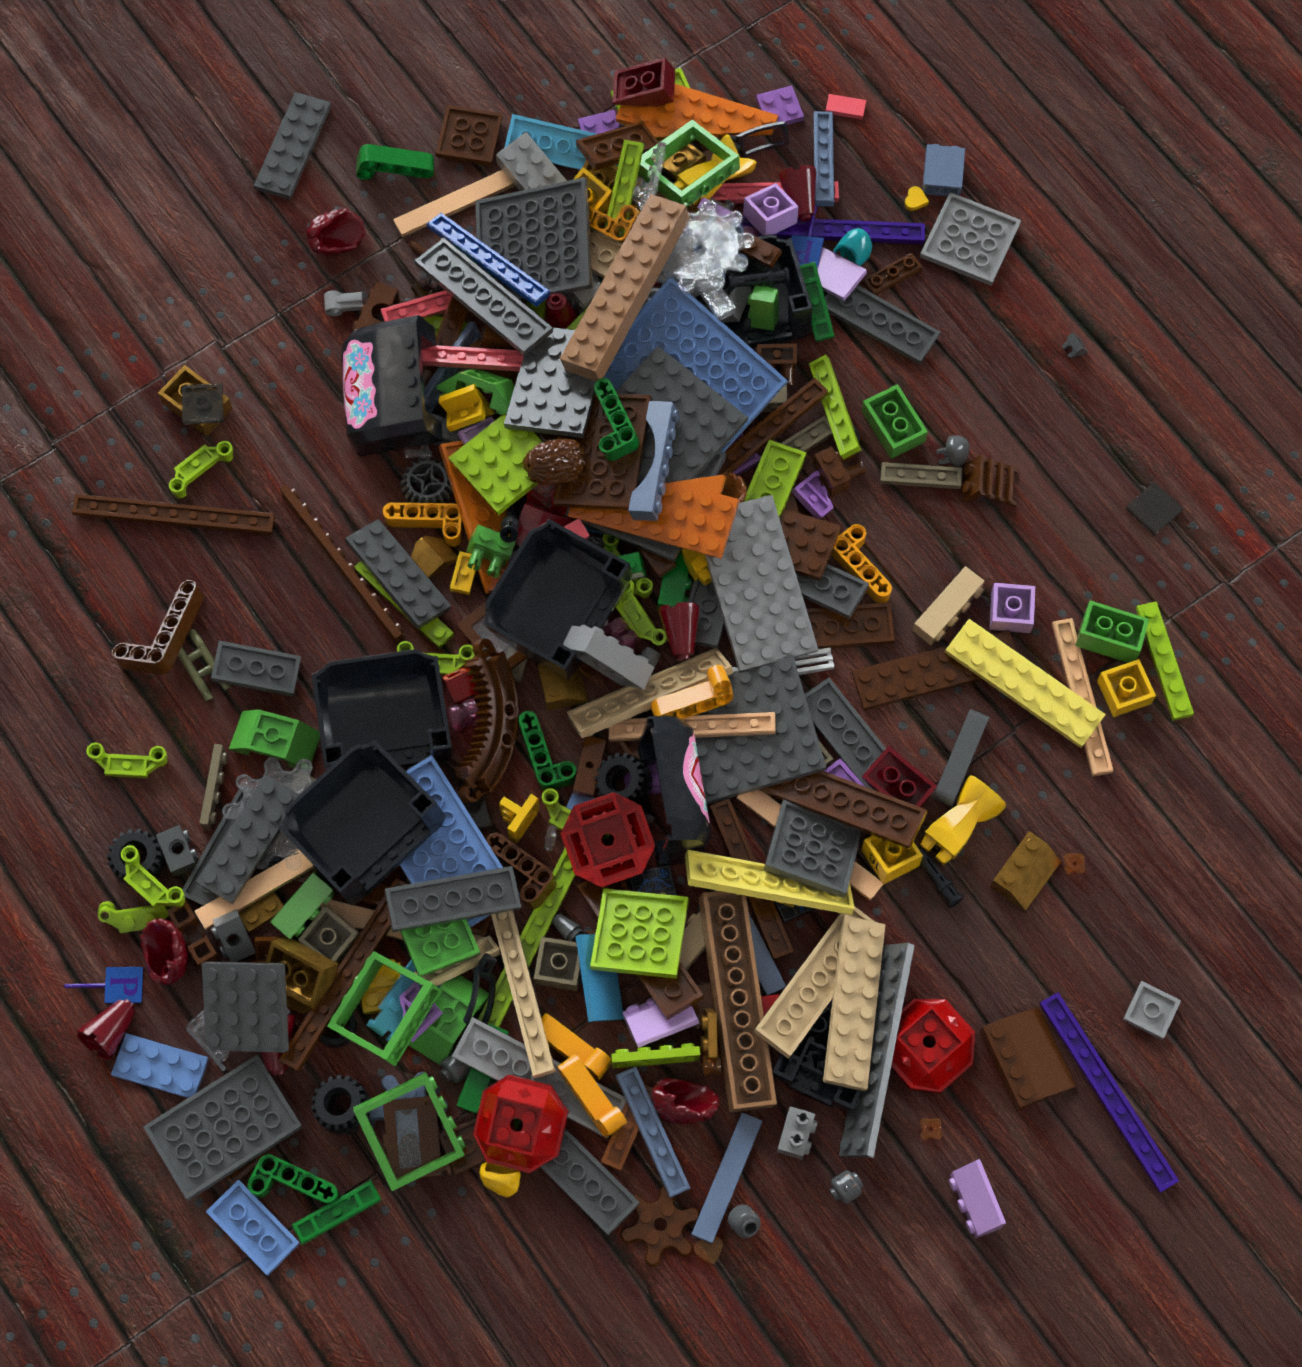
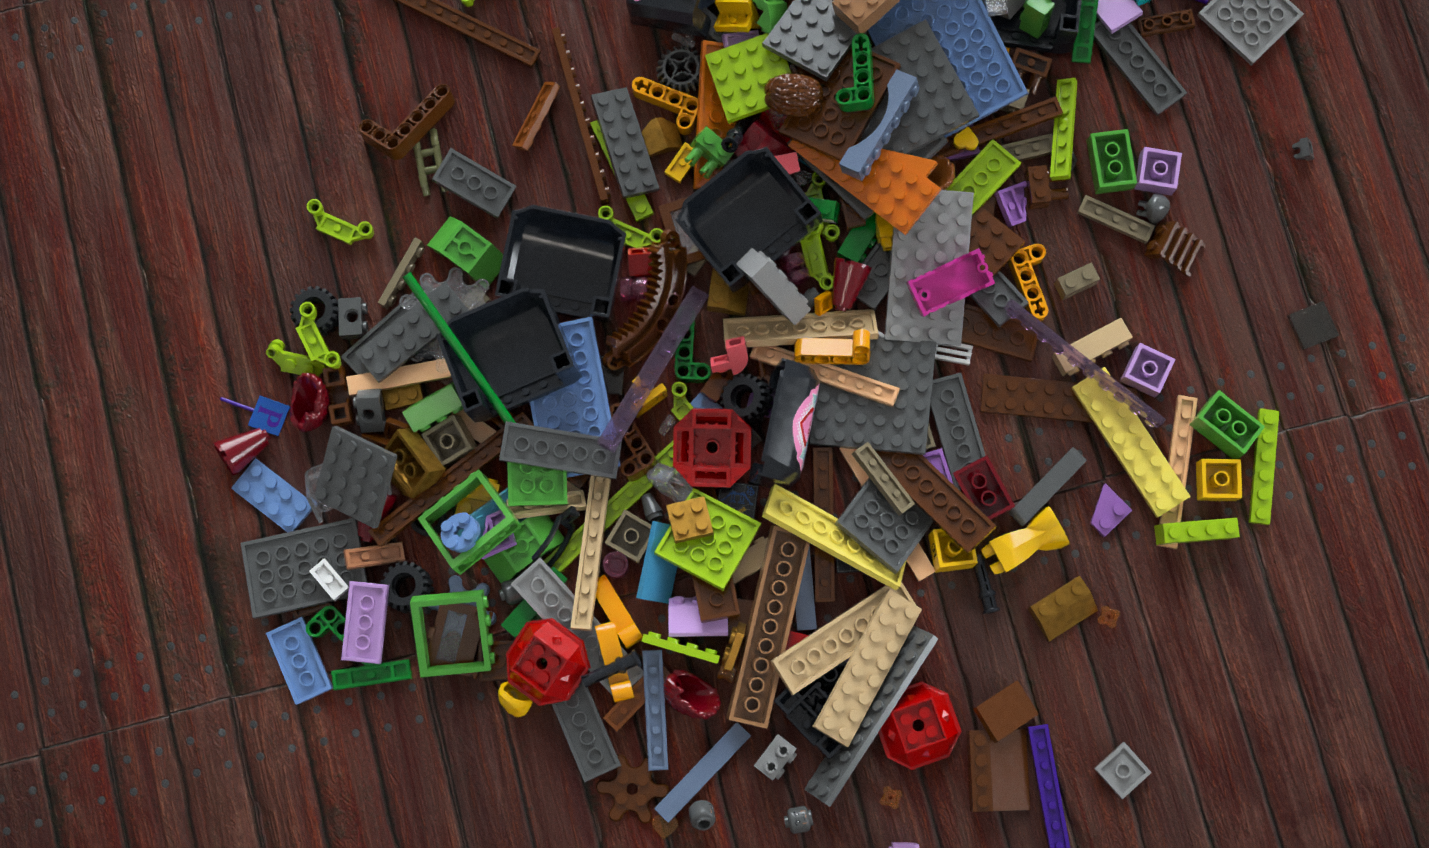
camera: 25 degrees right, 10 degrees up
(255, 1126) = (329, 579): none -> white plate
(293, 1085) = (374, 555): none -> nougat tile
(295, 579) = (536, 116): none -> dark orange plate
(306, 832) = (458, 348): none -> green piece
(311, 1156) = (365, 622): none -> lavender tile
(372, 1011) = (453, 525): none -> medium blue plate
(516, 784) = (652, 369): none -> clear purple plate
(554, 999) = (616, 565): none -> clear pink wheel
(577, 891) = (663, 476): none -> clear torso
(597, 743) = (734, 359): none -> coral brick
(600, 1094) = (620, 665): none -> black pin
(613, 920) = (689, 520): none -> pearl gold plate
(663, 659) = (823, 303): none -> light orange tile
(743, 449) = (966, 139): none -> yellow tile
(783, 589) = (950, 282): none -> dark pink piece
(794, 807) = (883, 478): none -> dark tan plate
(907, 547) = (1076, 281): none -> dark tan brick
(943, 414) = (1158, 171): none -> lavender brick
(954, 623) = (1089, 368): none -> clear purple plate
(1011, 994) = (1005, 711): none -> reddish brown tile
(1031, 760) = (1108, 511): none -> medium lavender wing
(1125, 745) = (1196, 531): none -> lime brick

